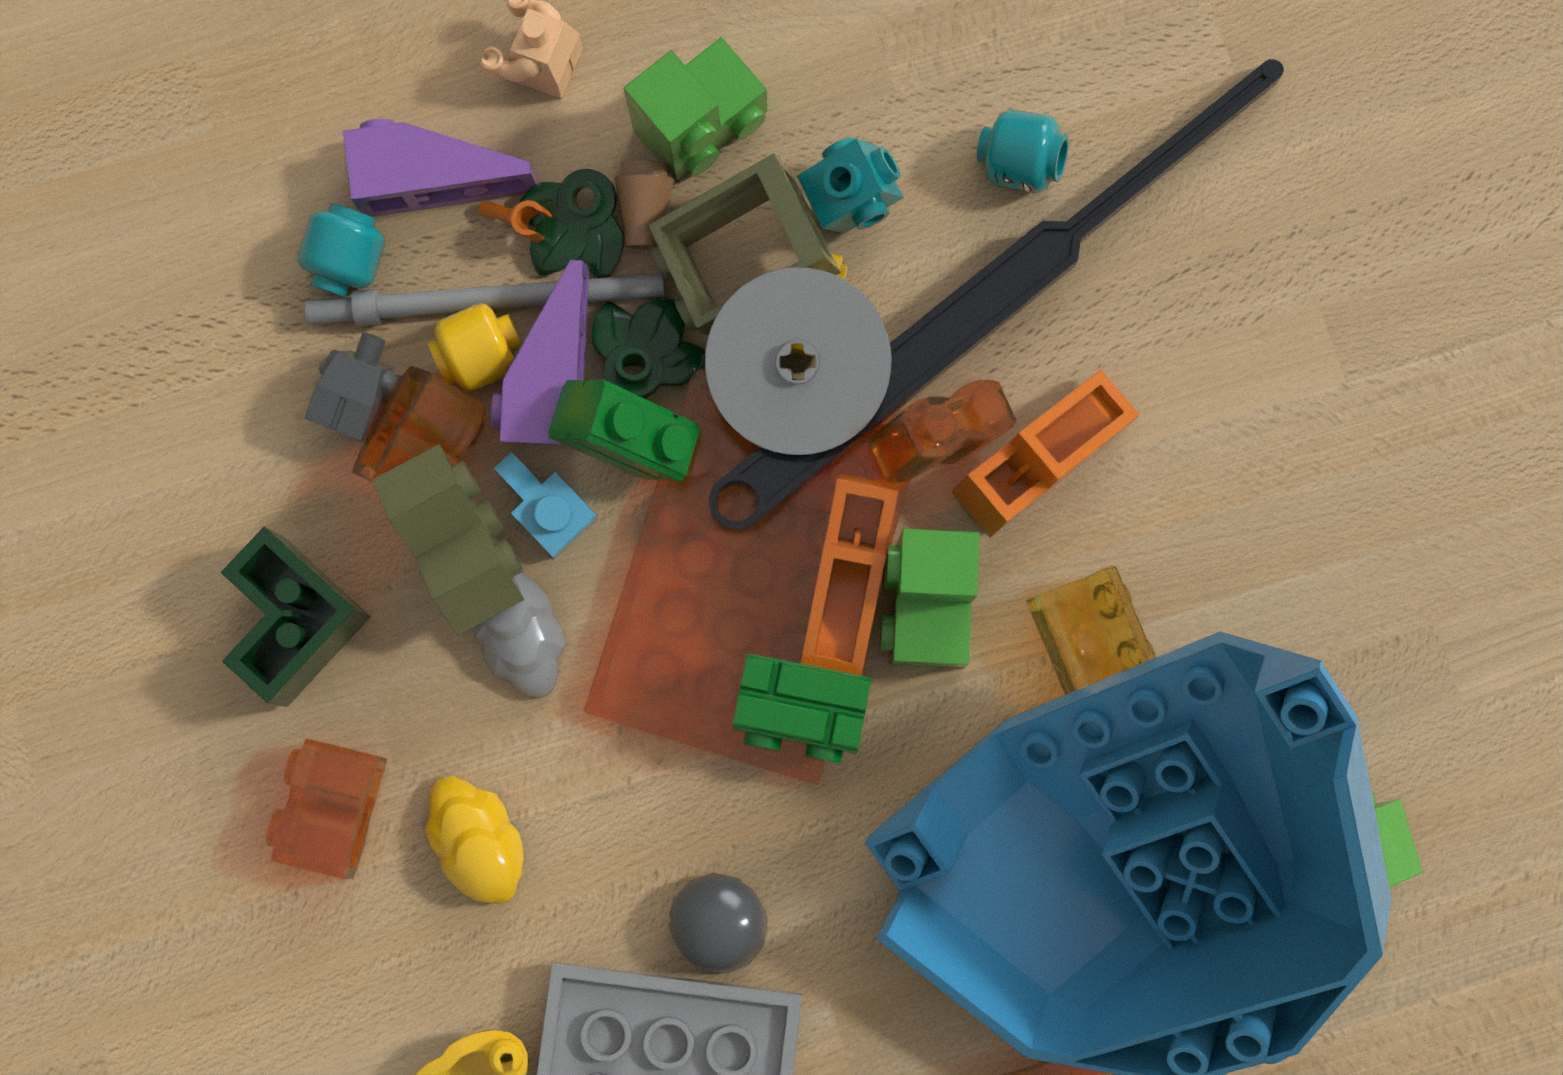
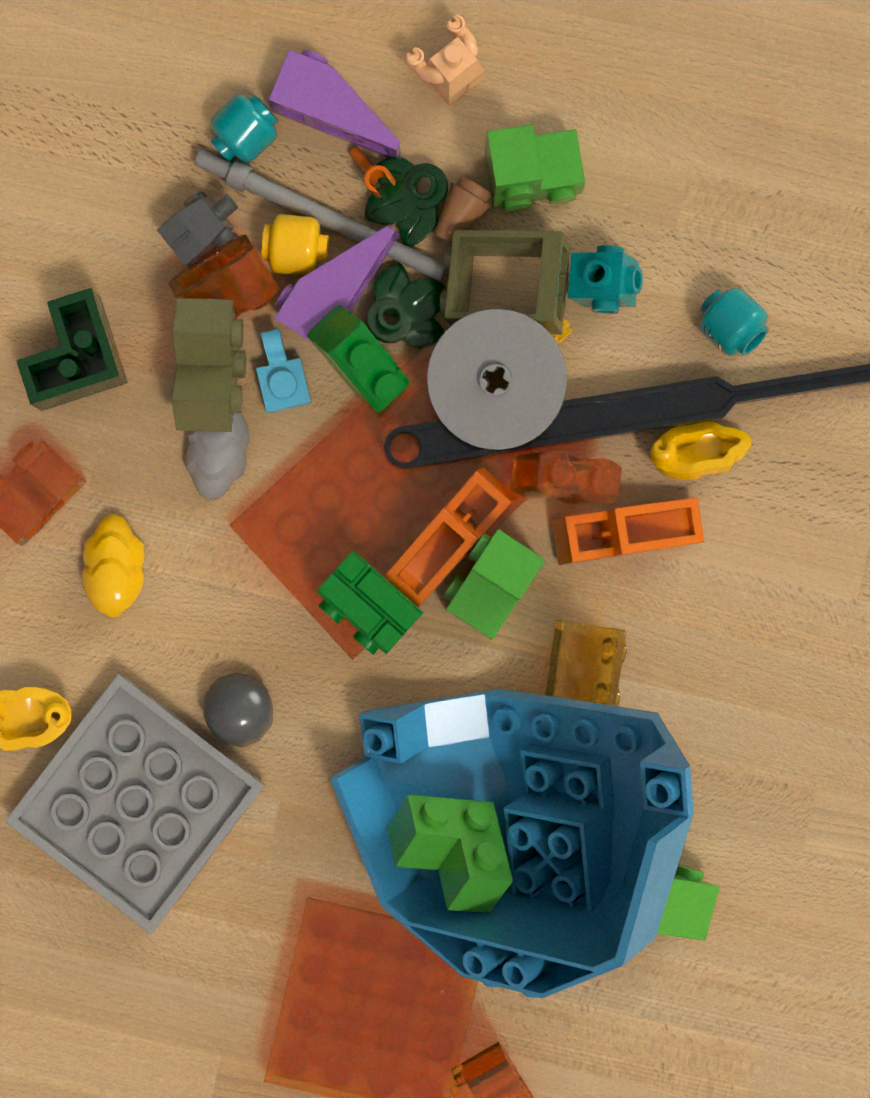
camera: 30 degrees right, 5 degrees up
(1071, 315) = (699, 450): none -> yellow arm
(1075, 926) = (457, 840): none -> bright green brick

